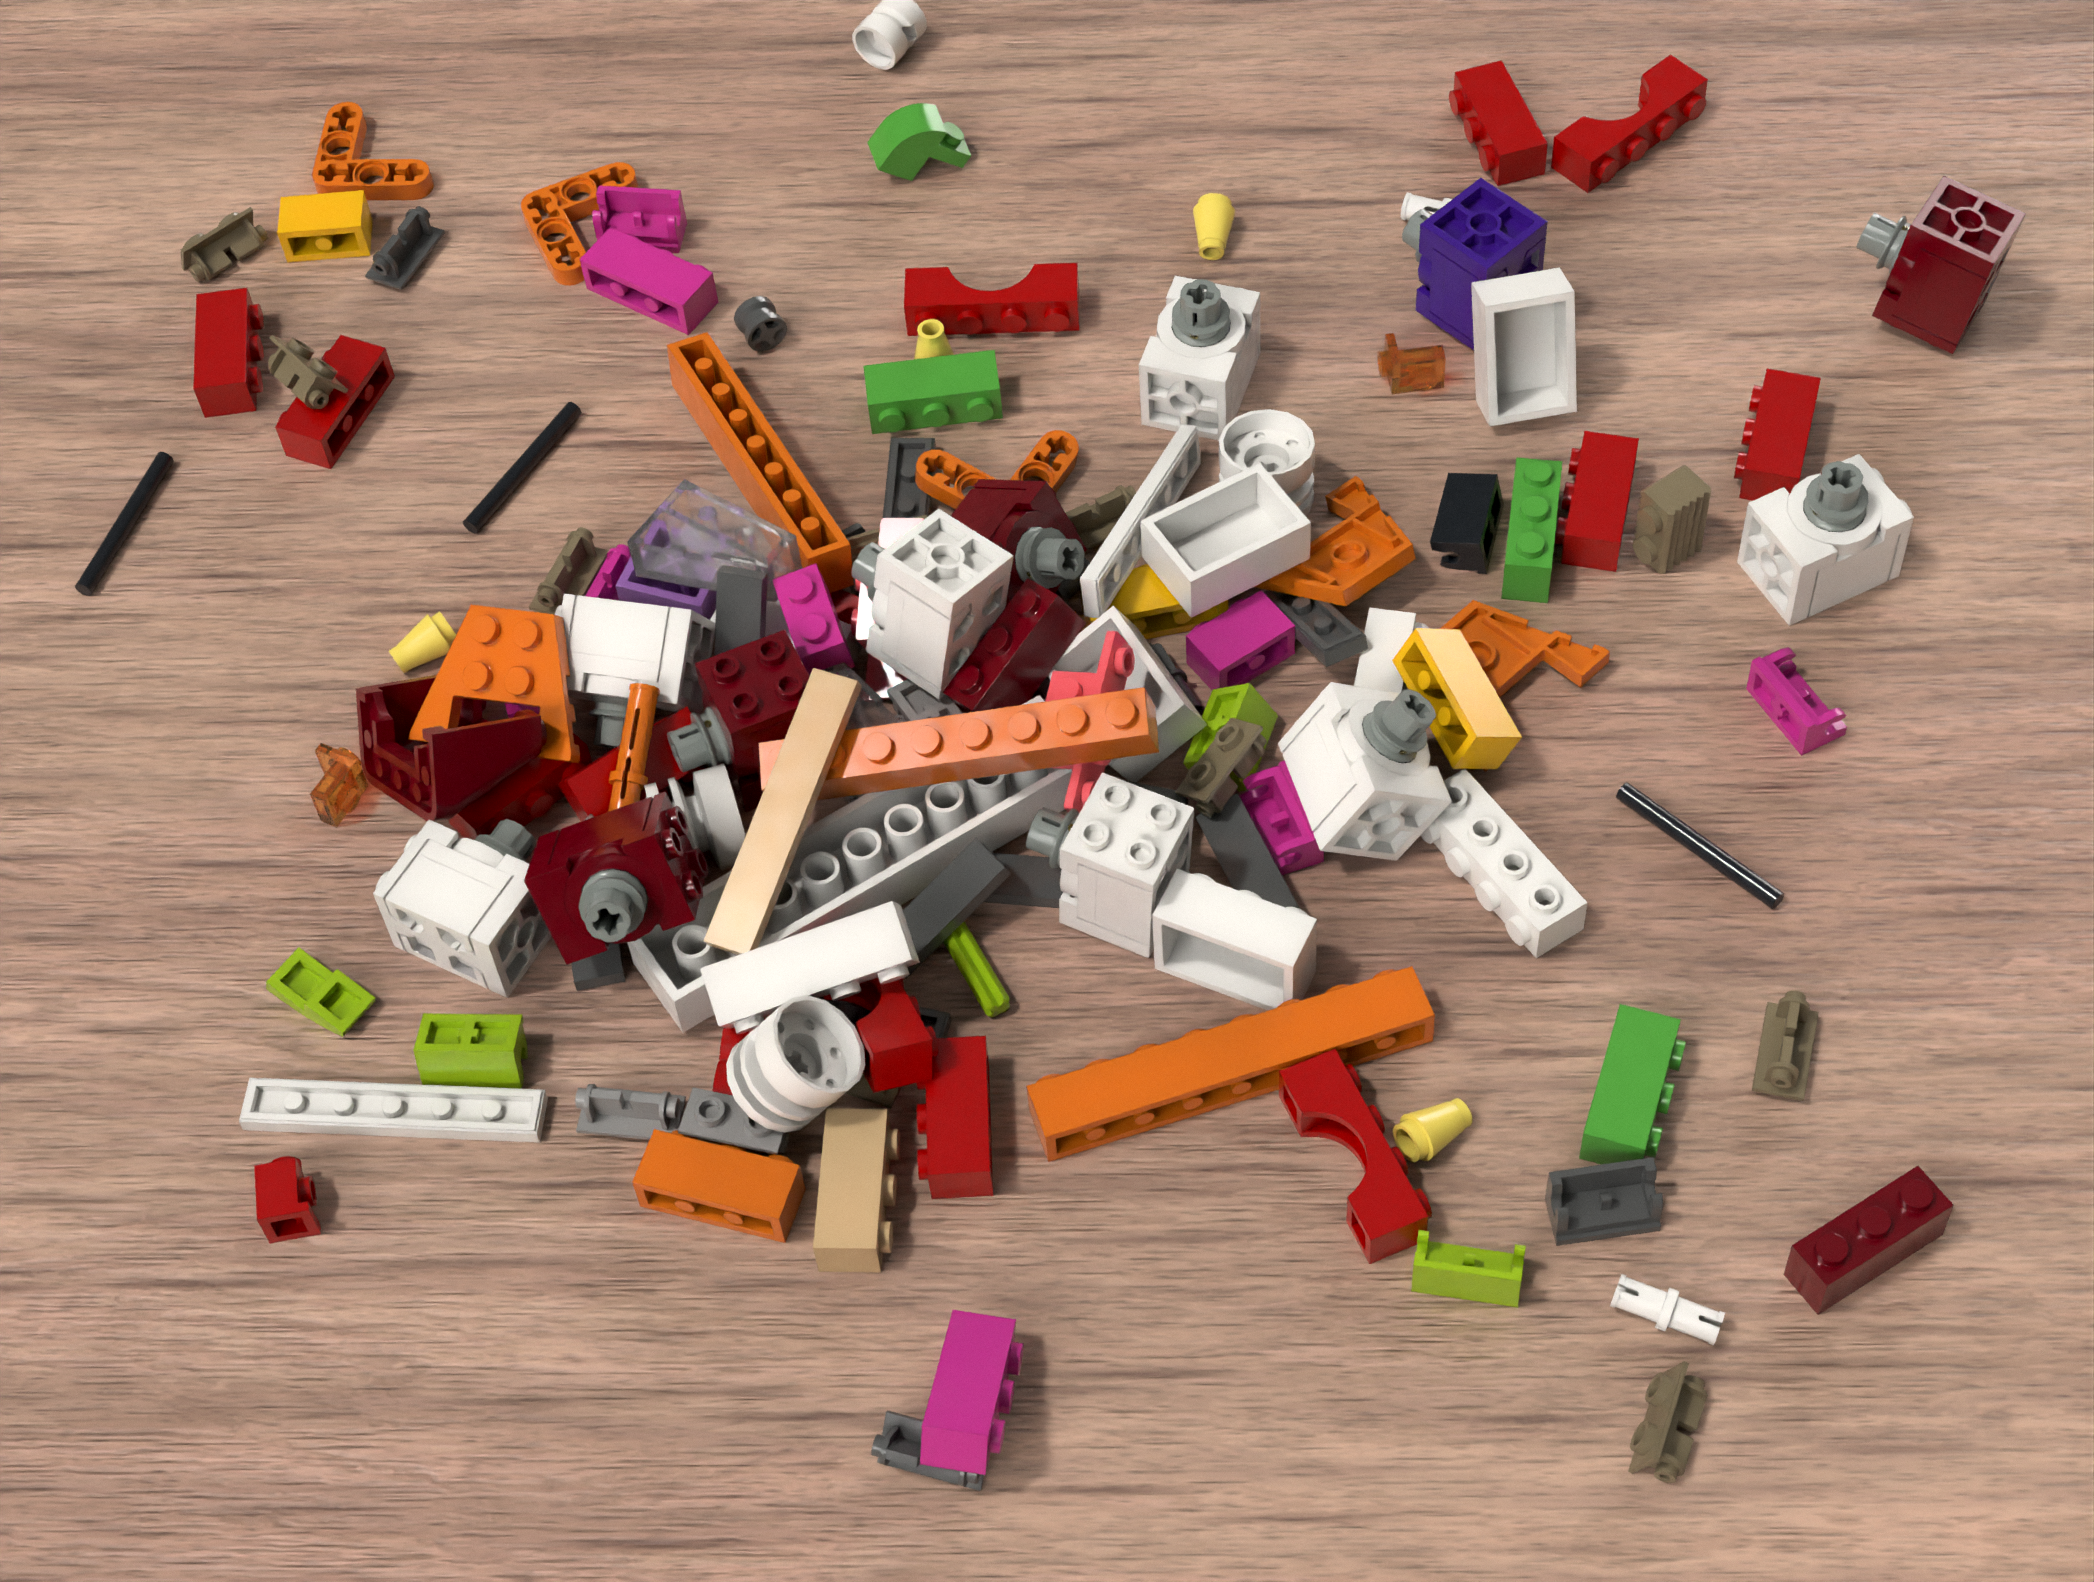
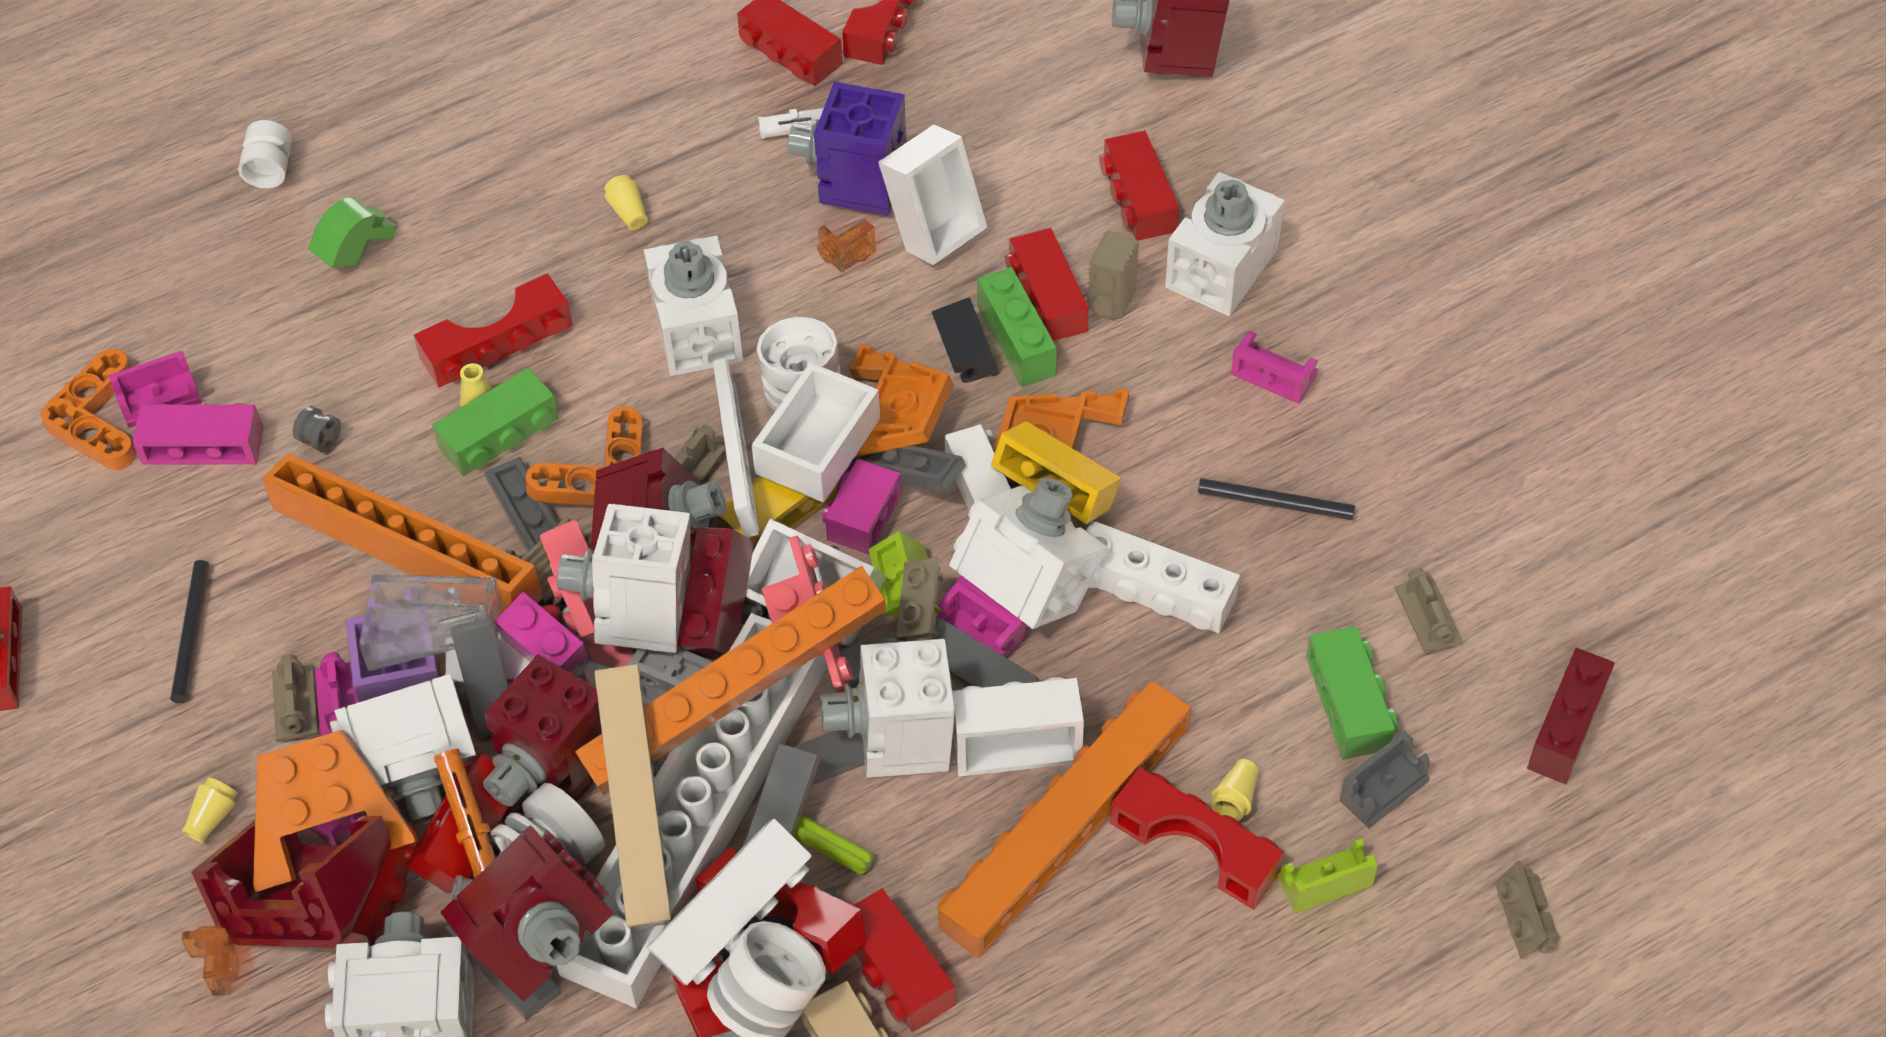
camera: 35 degrees left, 0 degrees up
(1667, 1309) = (1474, 832): white pin -> none

